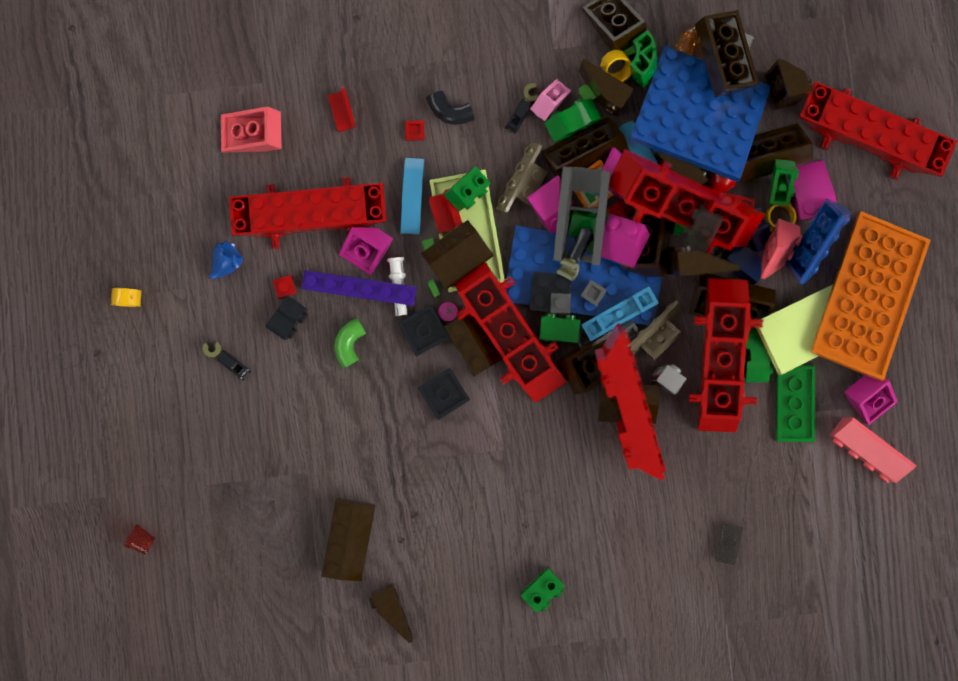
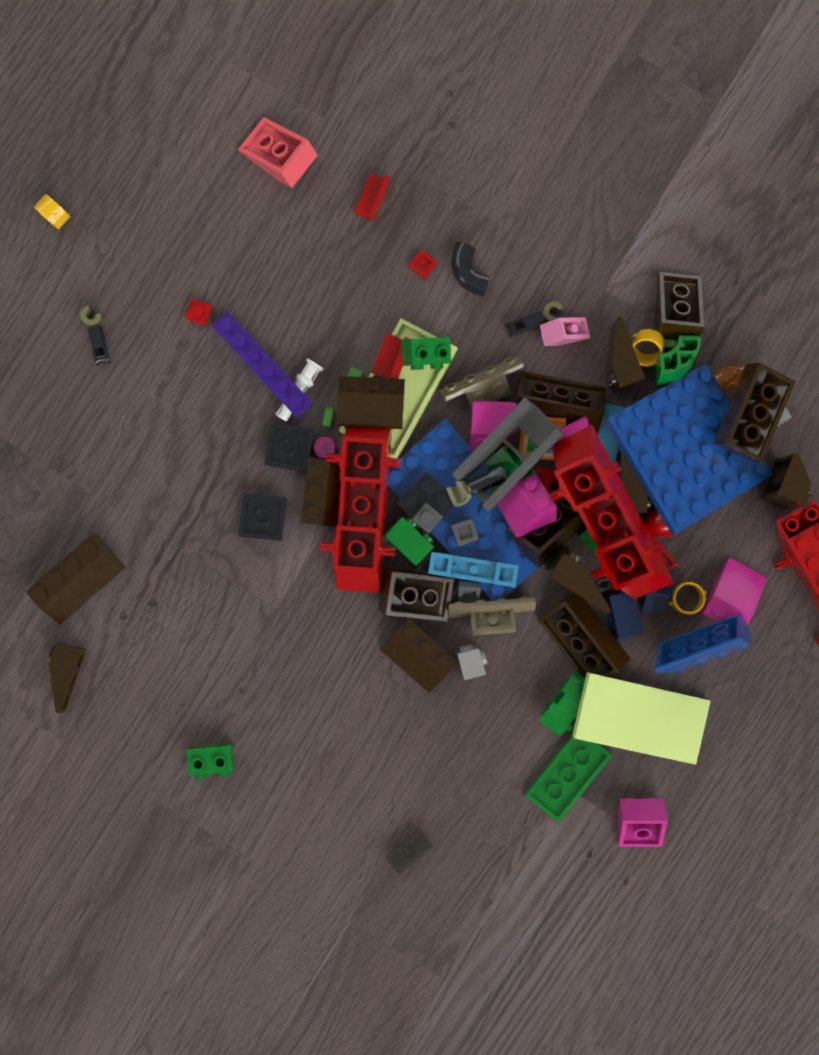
camera: 45 degrees right, 0 degrees up
(225, 260) = (164, 247): blue hat -> none
(286, 318) = (178, 341): black brick -> none
(307, 210) = (274, 262): red piece -> none
(345, 340) = (212, 402): bright green cylinder -> none
(365, 247) = (296, 333): dark pink slope -> none
(412, 196) = (373, 320): dark azure slope -> none
(578, 117) = (564, 363): green brick -> none
(586, 93) = (601, 352): bright green piece -> none
(636, 427) = (405, 682): red piece -> none
(702, 229) = (604, 551): clear smoke bracket -> none
(723, 357) = (536, 680): red piece -> none
(779, 247) = (664, 624): coral slope -> none
(782, 182) = (713, 567): green brick -> none
(784, 144) = (730, 537): dark brown slope -> none
(870, 296) = (711, 732): orange plate -> none
(871, 450) = (602, 870): coral slope -> none

